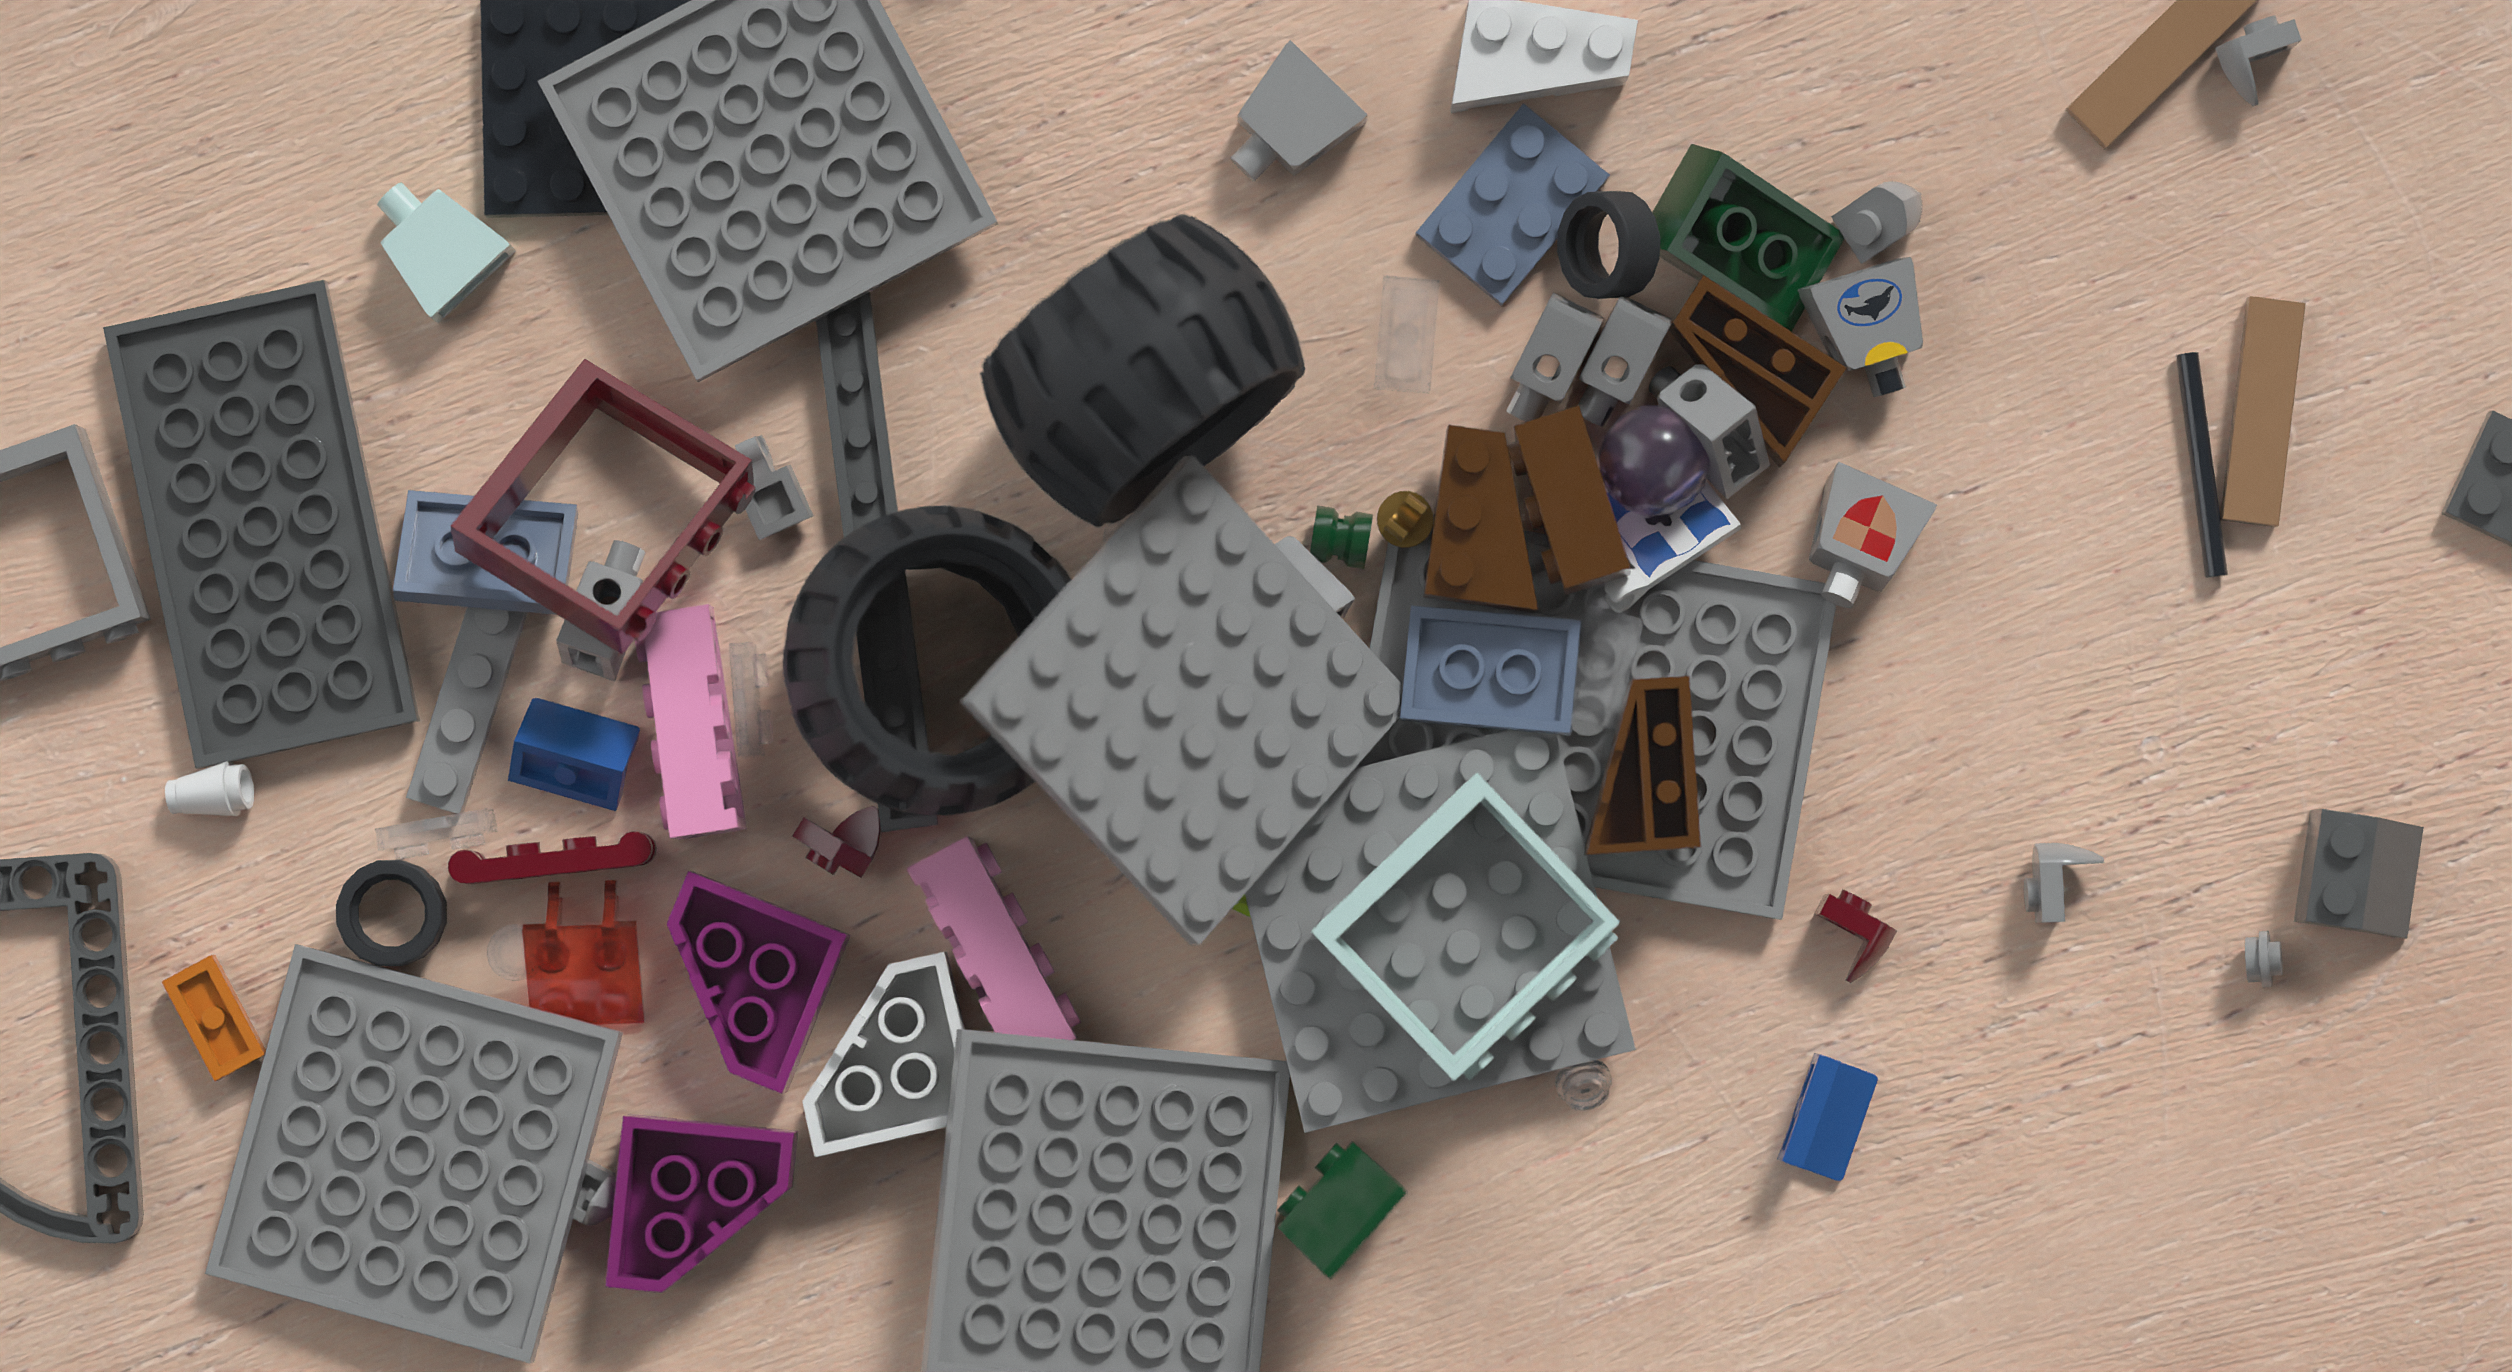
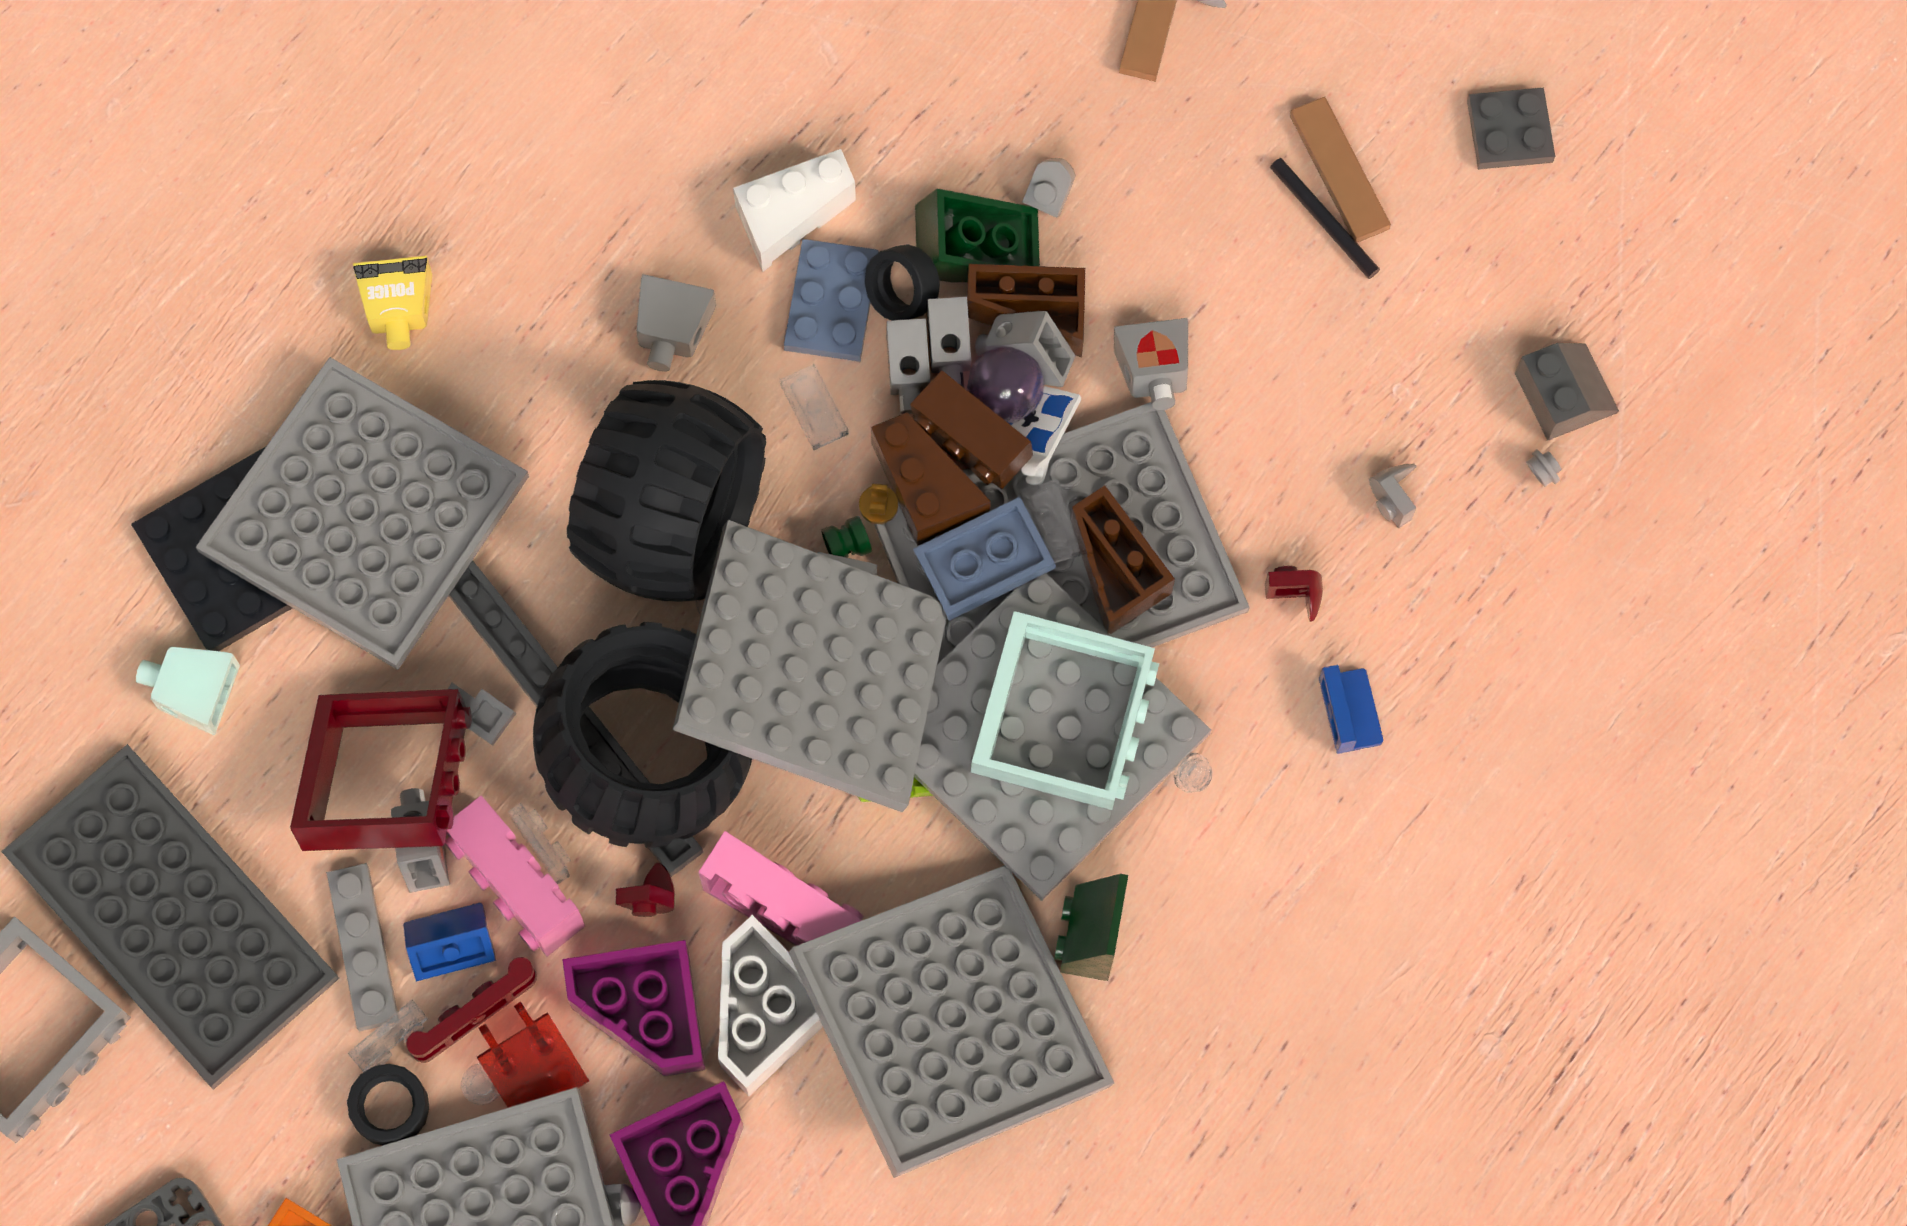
camera: 30 degrees left, 15 degrees down
(212, 791) = (229, 1096): white cone -> none
(435, 574) = (300, 872): sand blue plate -> none
(1869, 320) = (1081, 239): light grey torso -> none

